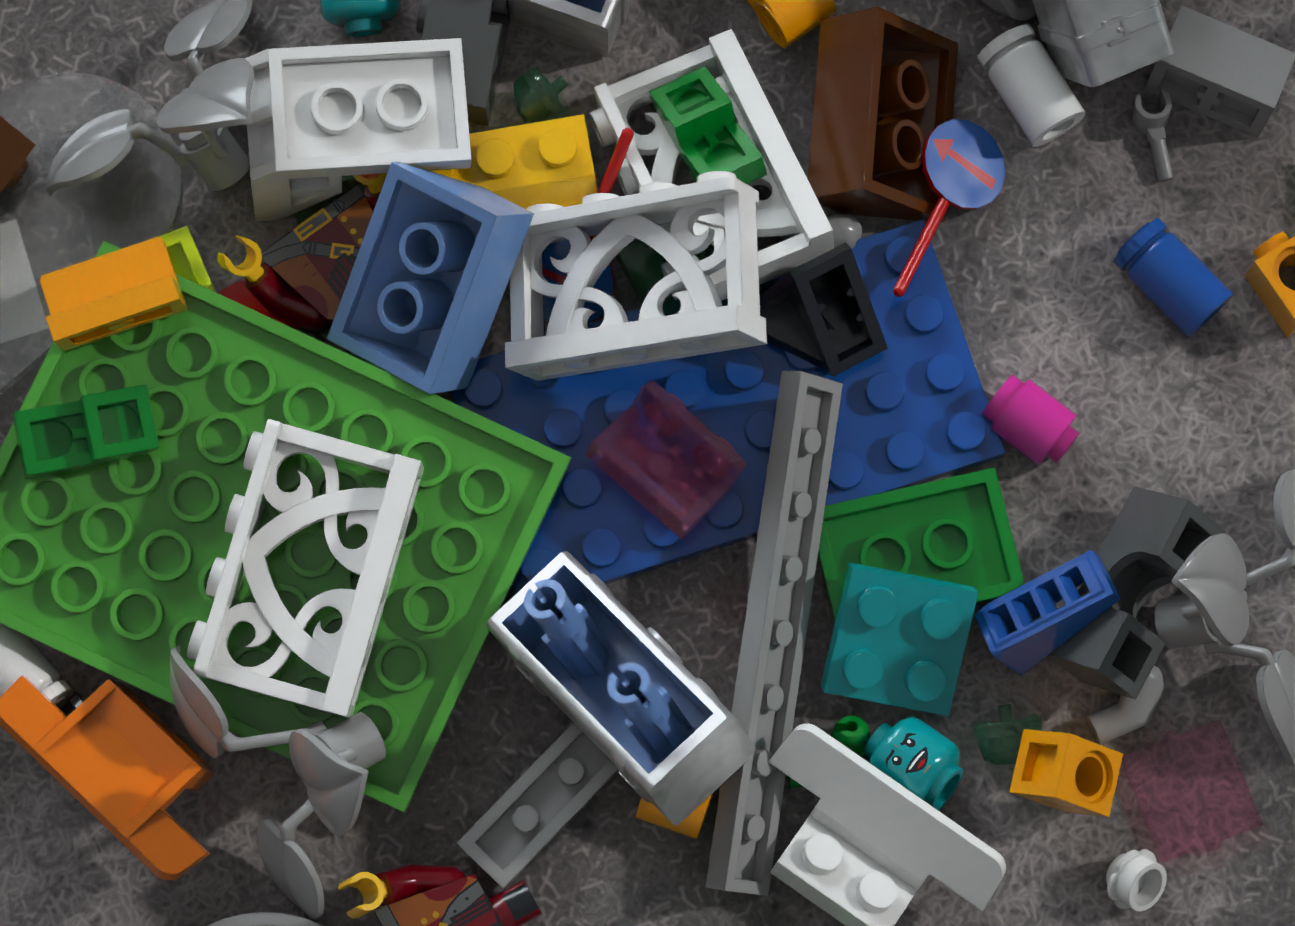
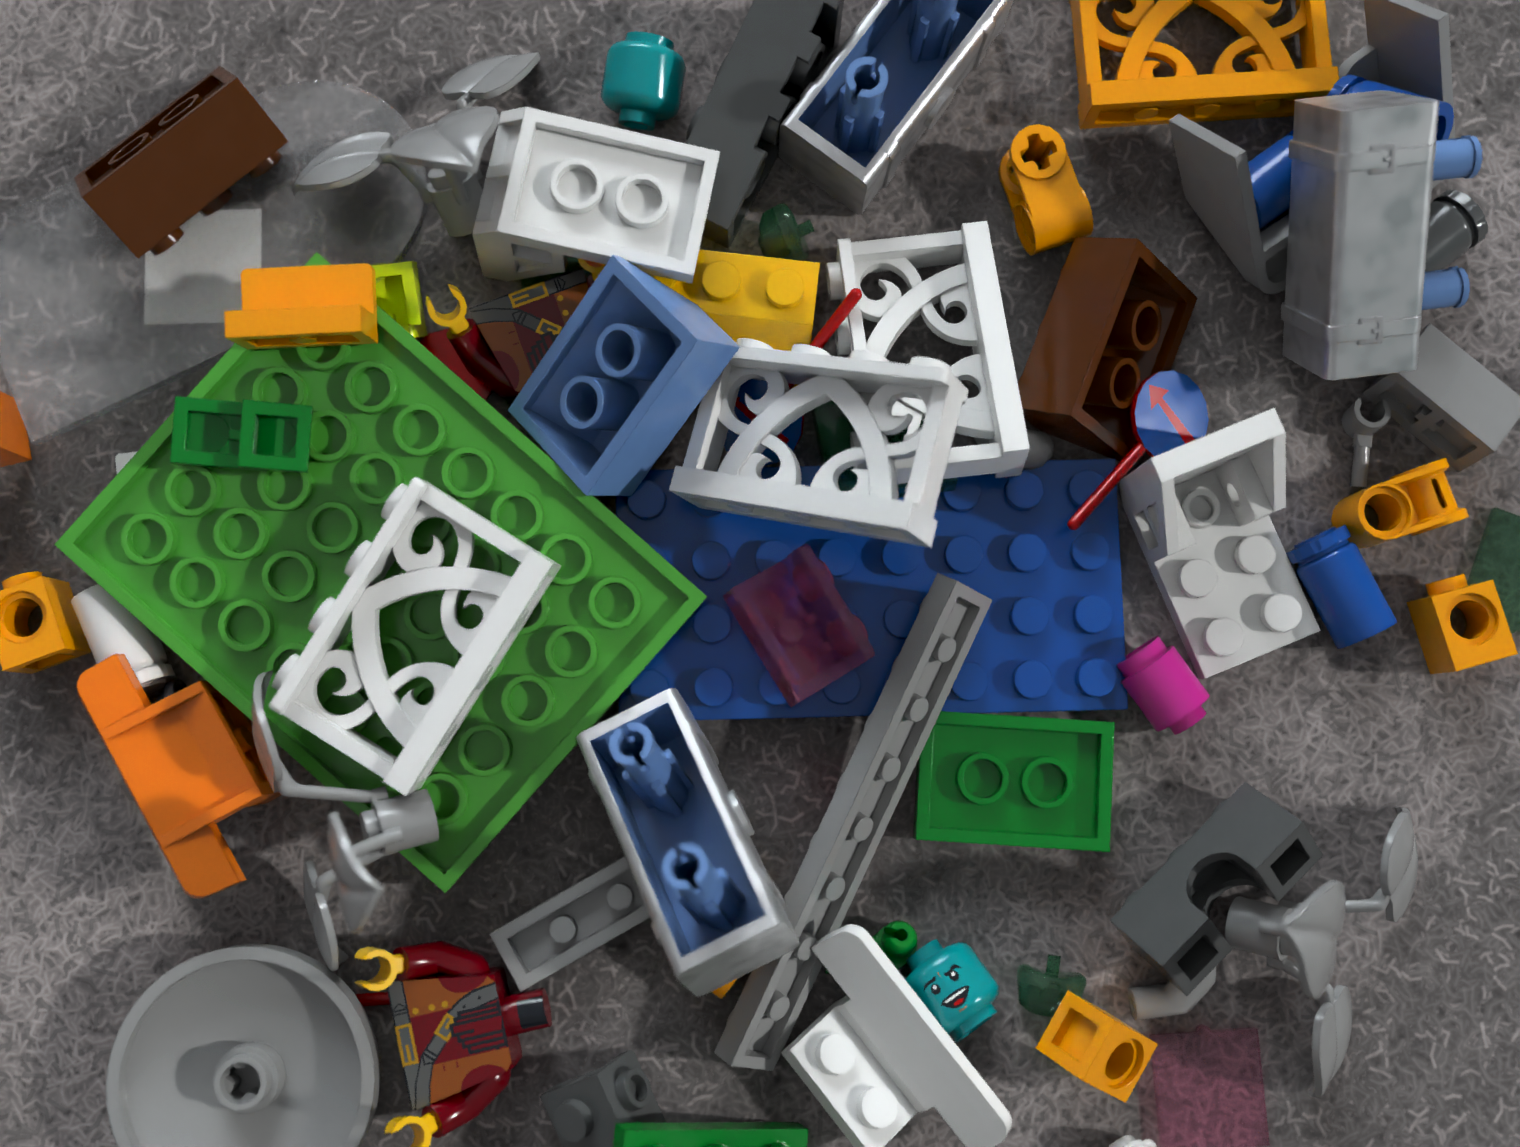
camera: 15 degrees right, 5 degrees up
(705, 127) = (933, 312): green slope -> none
(823, 313) = (996, 525): black slope -> none
(899, 639) = (972, 864): teal plate -> none
(1010, 622) = (1097, 866): blue slope -> none
(1031, 85) = (1258, 357): white piece -> none
(1039, 274) = (1213, 544): none -> white bracket
(1216, 182) = (1404, 506): none -> light orange piece

